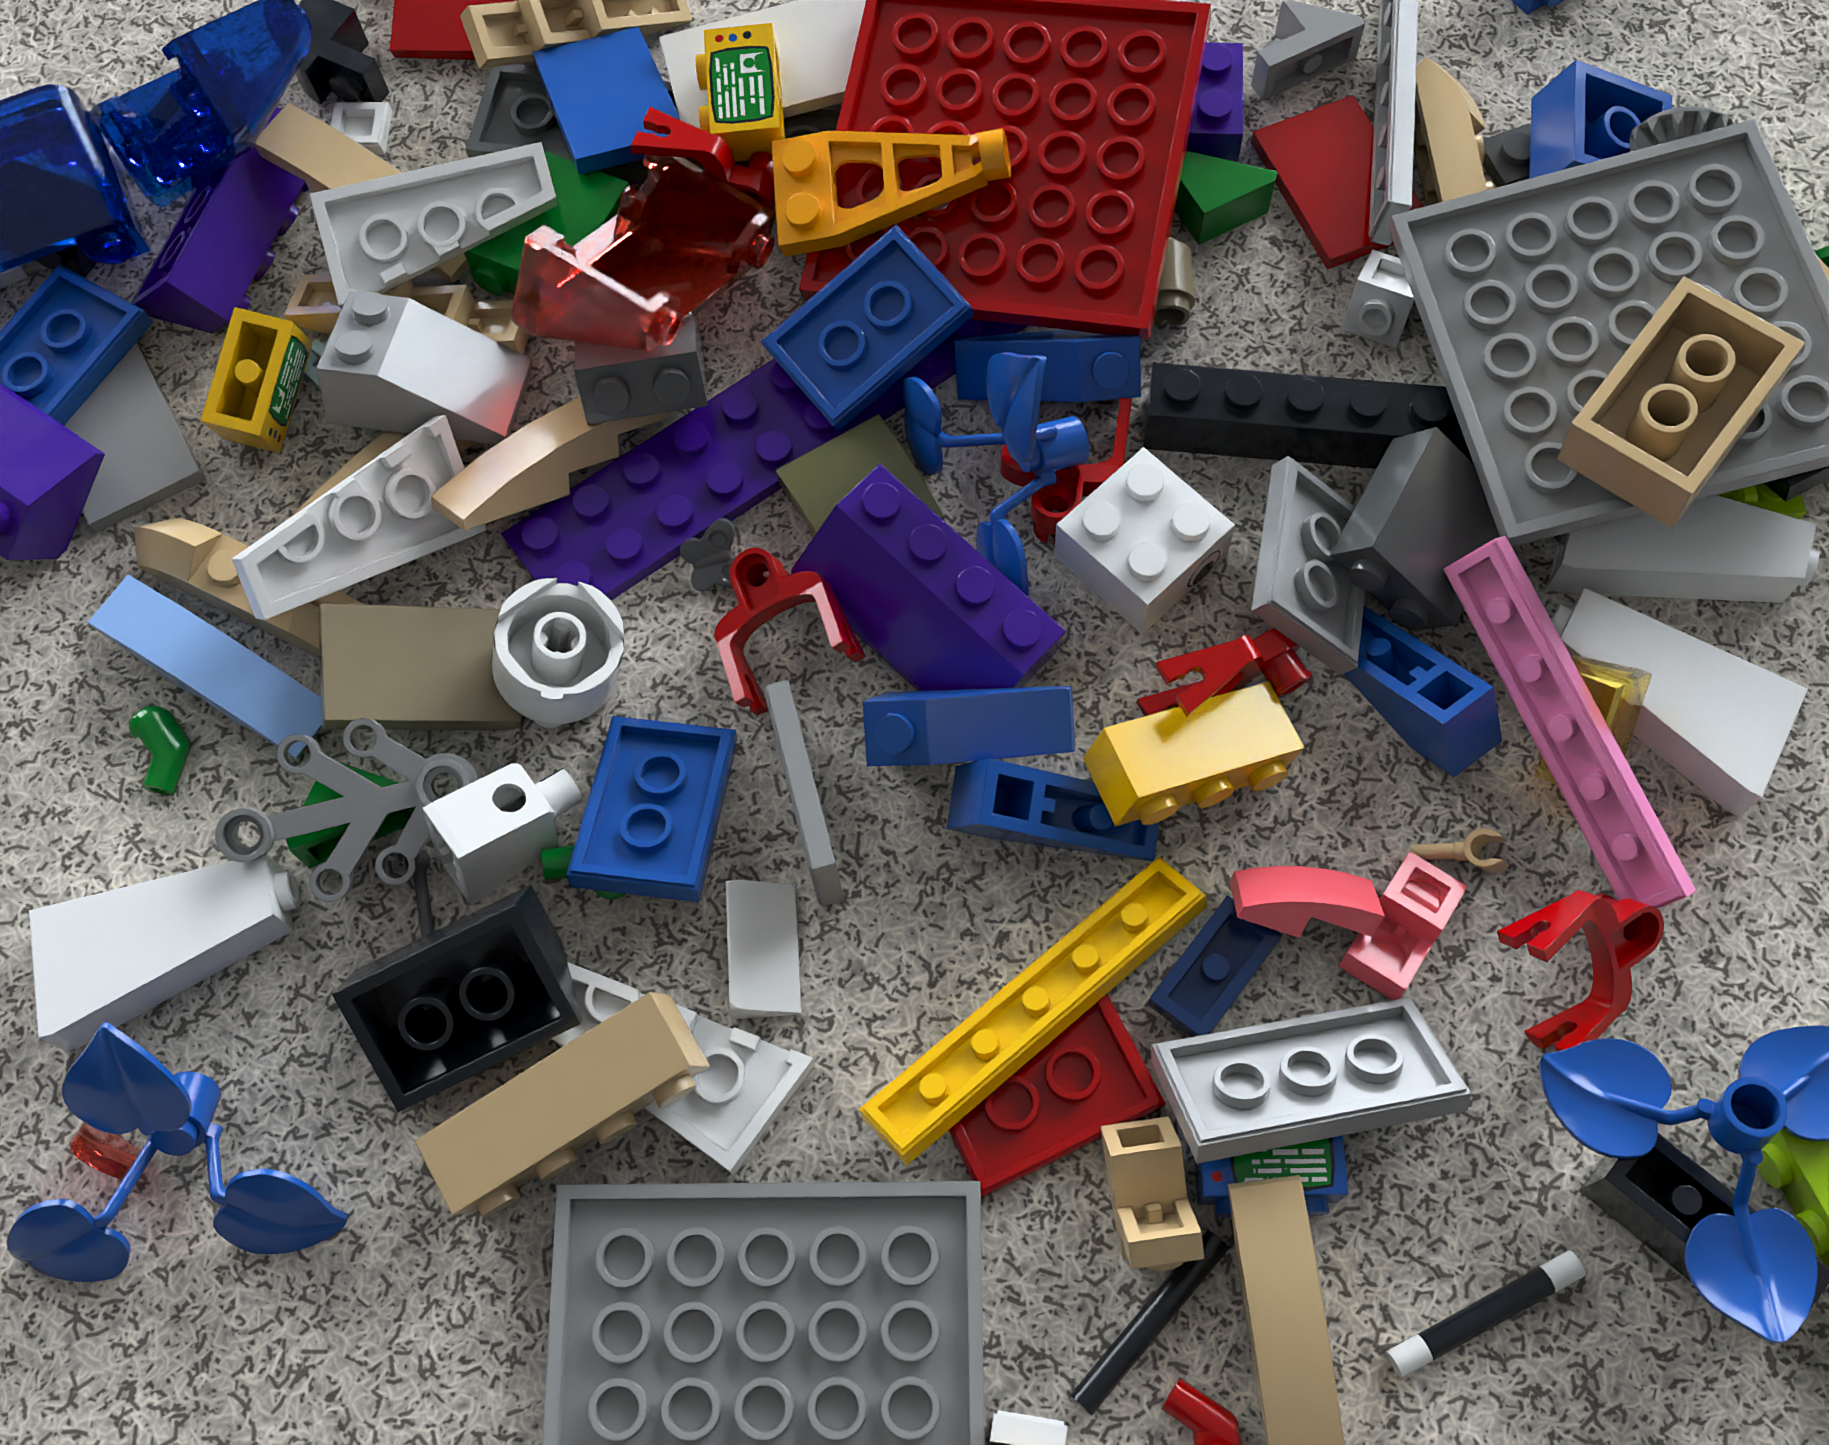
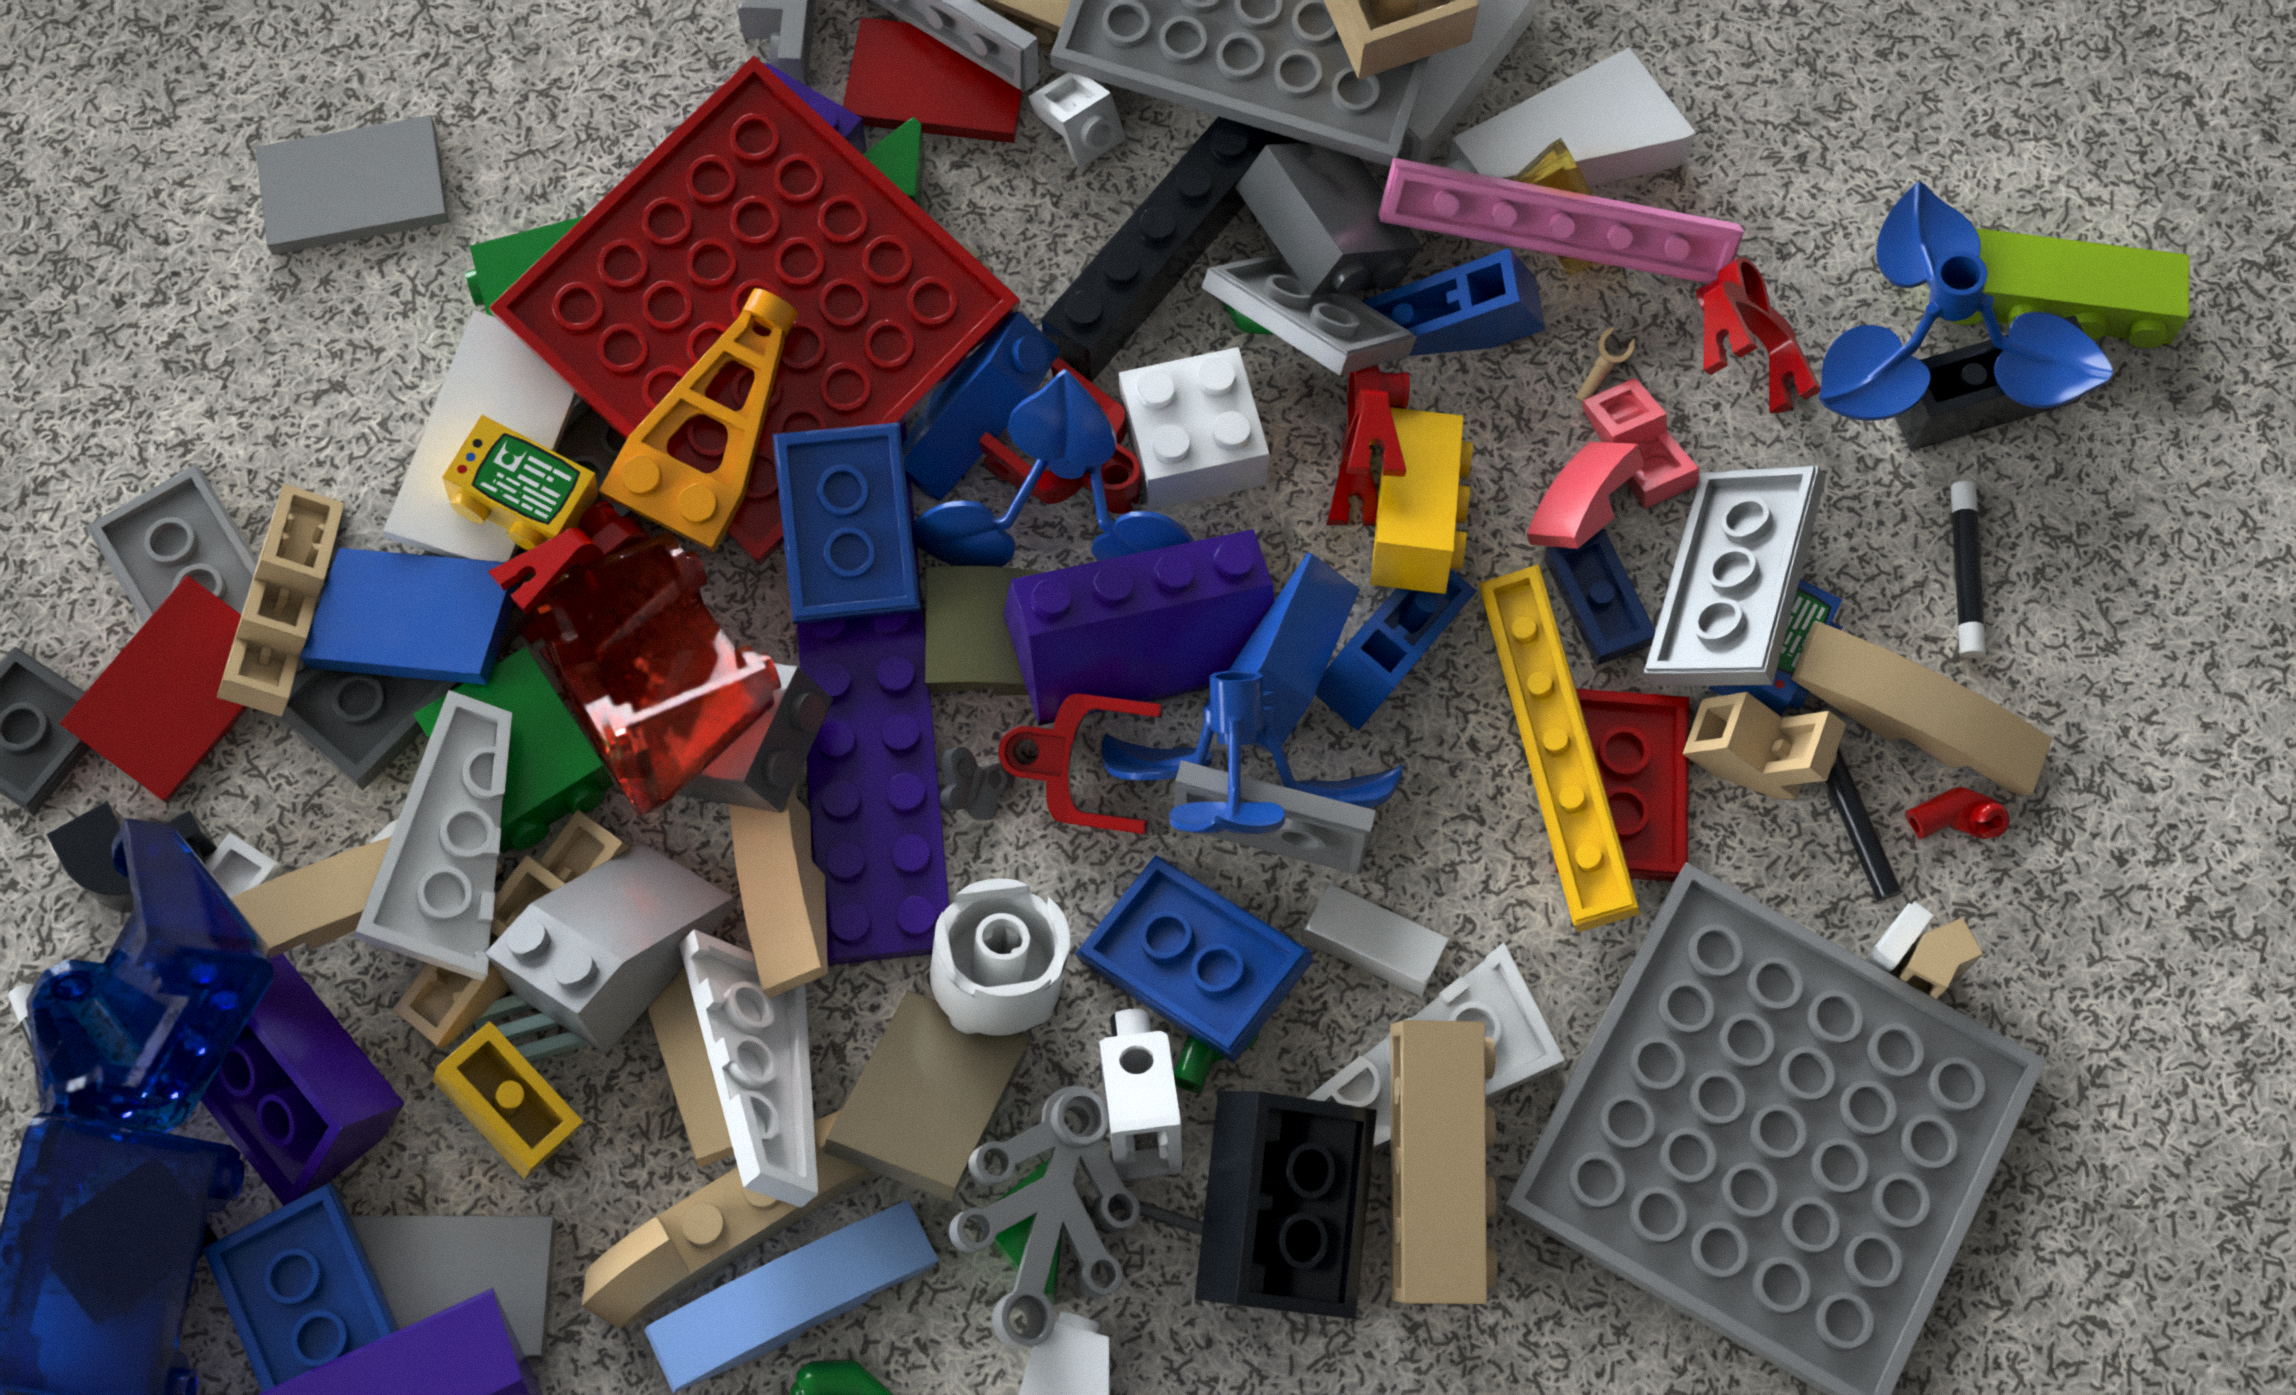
camera: 65 degrees left, 0 degrees up
(851, 704) = (1237, 716): none -> blue plant

